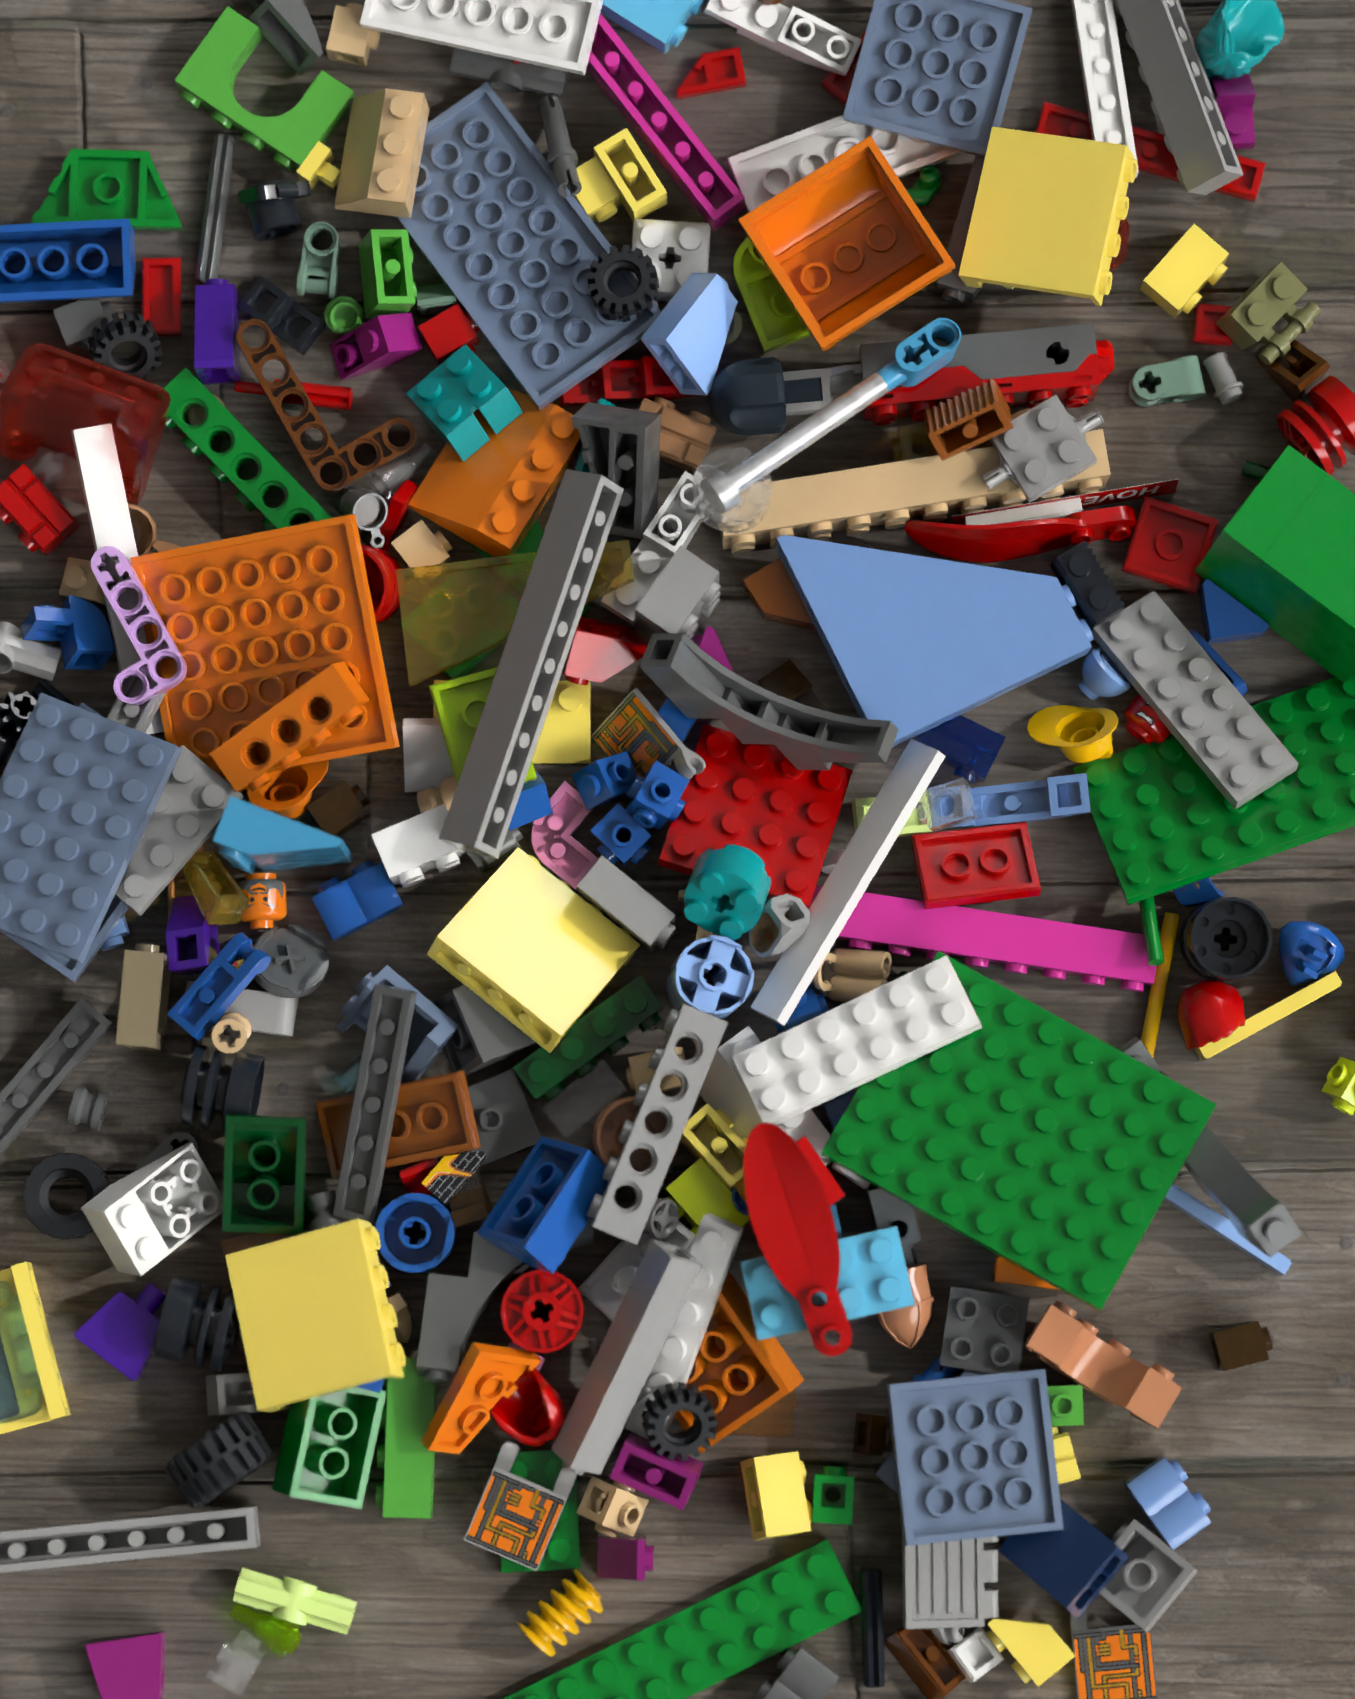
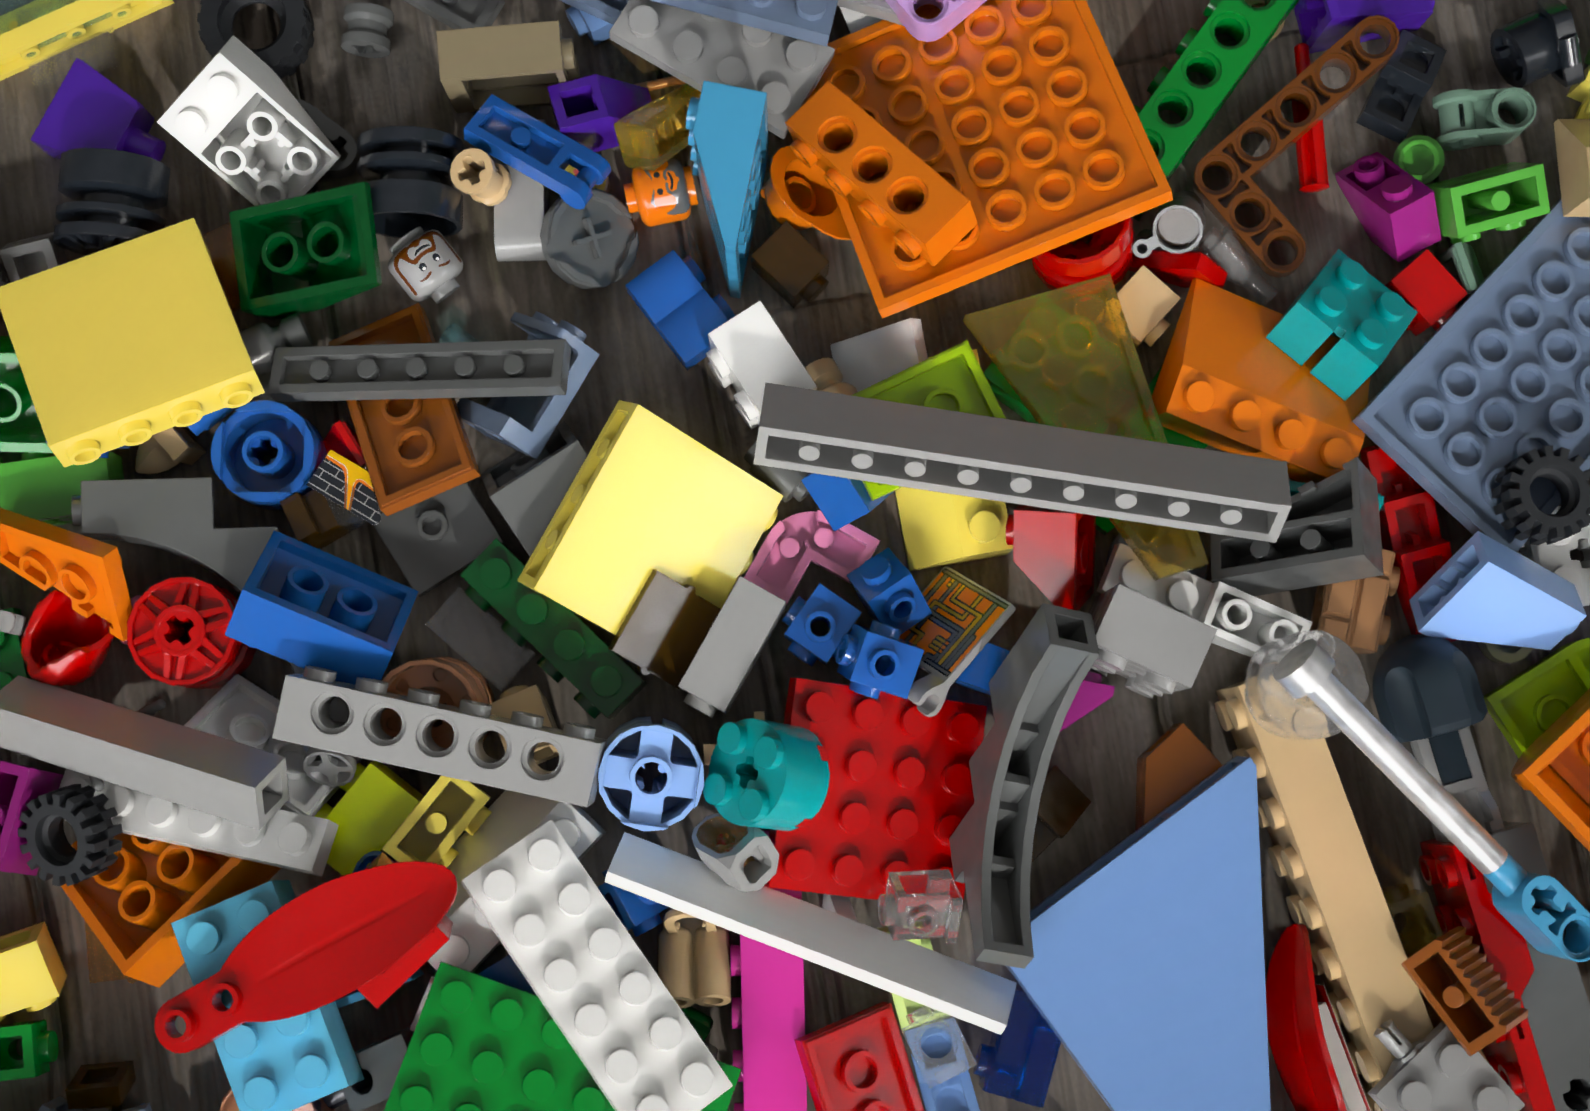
camera: 75 degrees right, 0 degrees up
(287, 1091) = (425, 265): none -> light grey head
(605, 950) = (664, 628): none -> dark brown piece
(843, 797) = (921, 905): none -> clear brick

